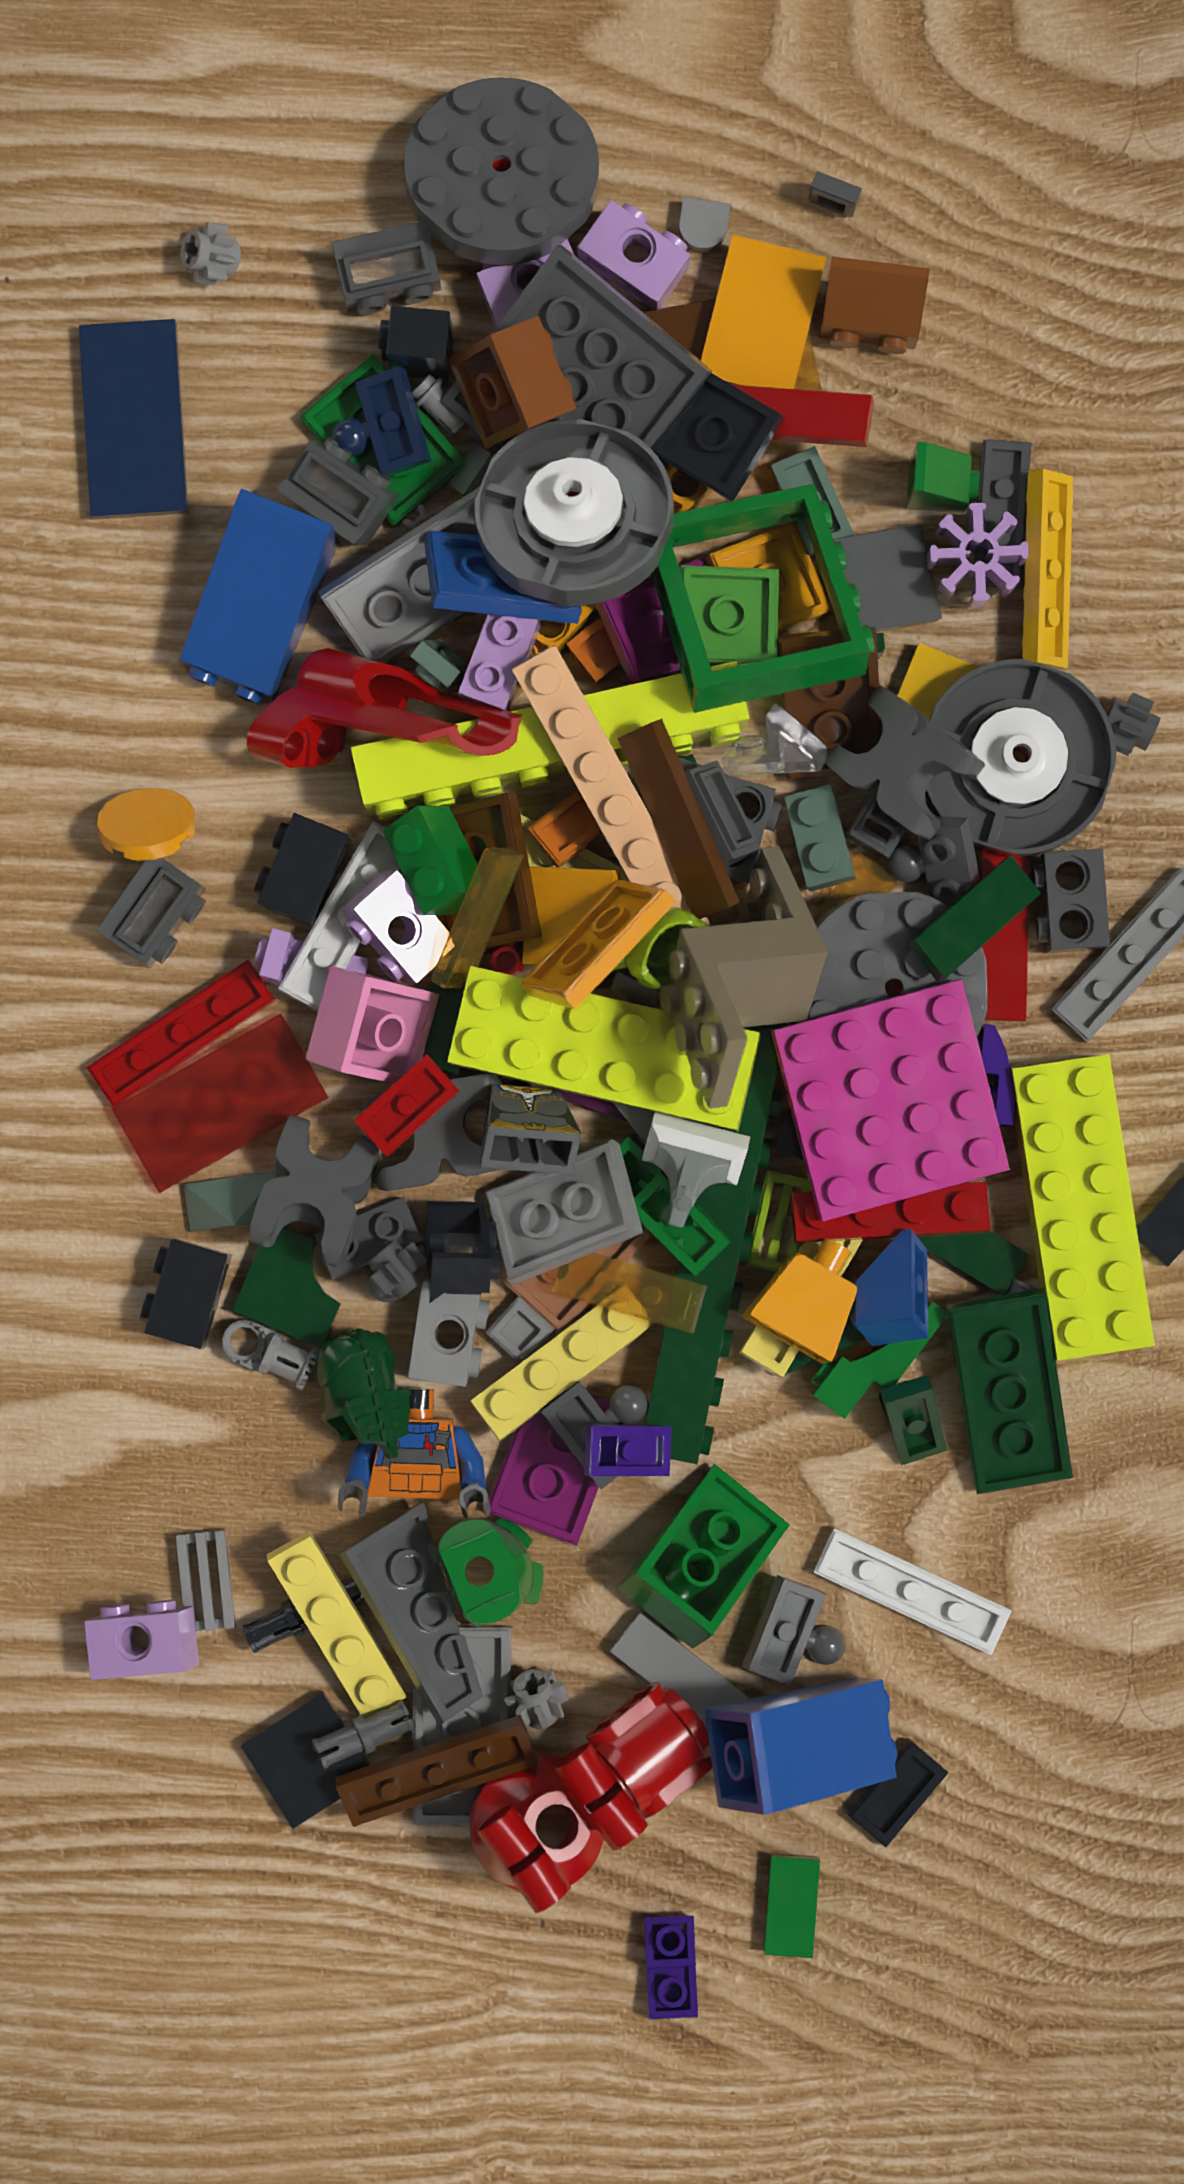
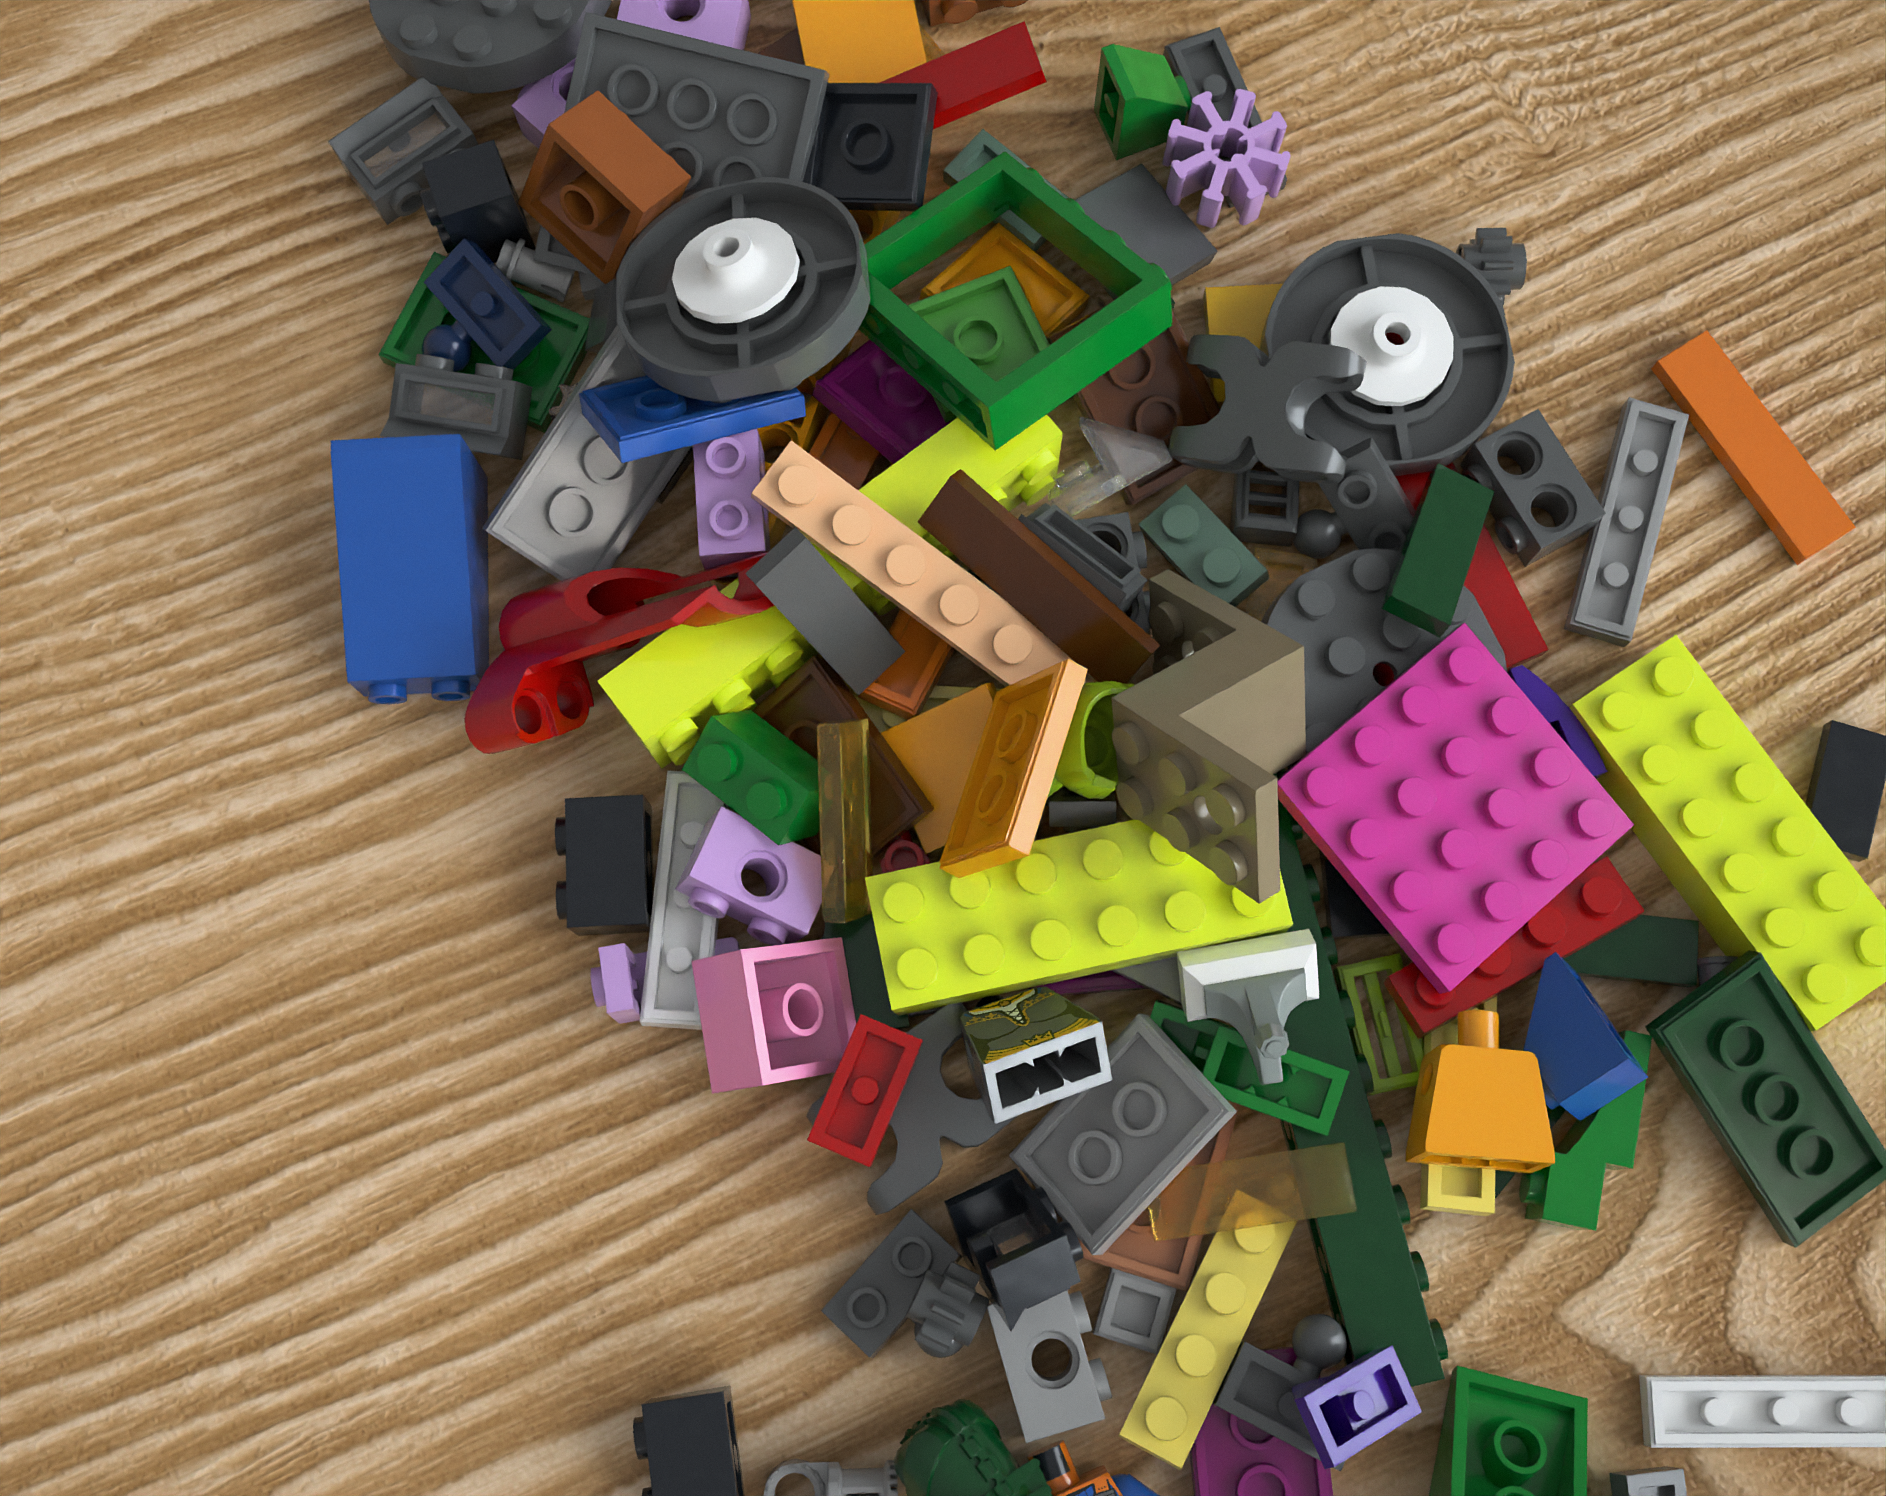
camera: 30 degrees left, 10 degrees down
(133, 419) = (184, 445): dark blue tile -> none
(146, 823) = (389, 896): light orange tile -> none
(152, 911) = (443, 999): dark grey window -> none
(181, 1033) = (544, 1137): red tile -> none
(210, 253) = (196, 221): light grey gear -> none
(220, 1103) = (630, 1201): clear red tile -> none
(224, 1201) = (704, 1315): sand green slope -> none
(285, 1291) = (815, 1400): dark green tile -> none
(314, 1191) = (797, 1257): dark grey piece -> none
(439, 664) = (662, 546): sand green plate -> none
(526, 773) = (825, 611): none -> dark grey tile
(913, 1419) = (1671, 1188): dark green slope -> none
(1047, 568) = (1315, 161): yellow plate -> none

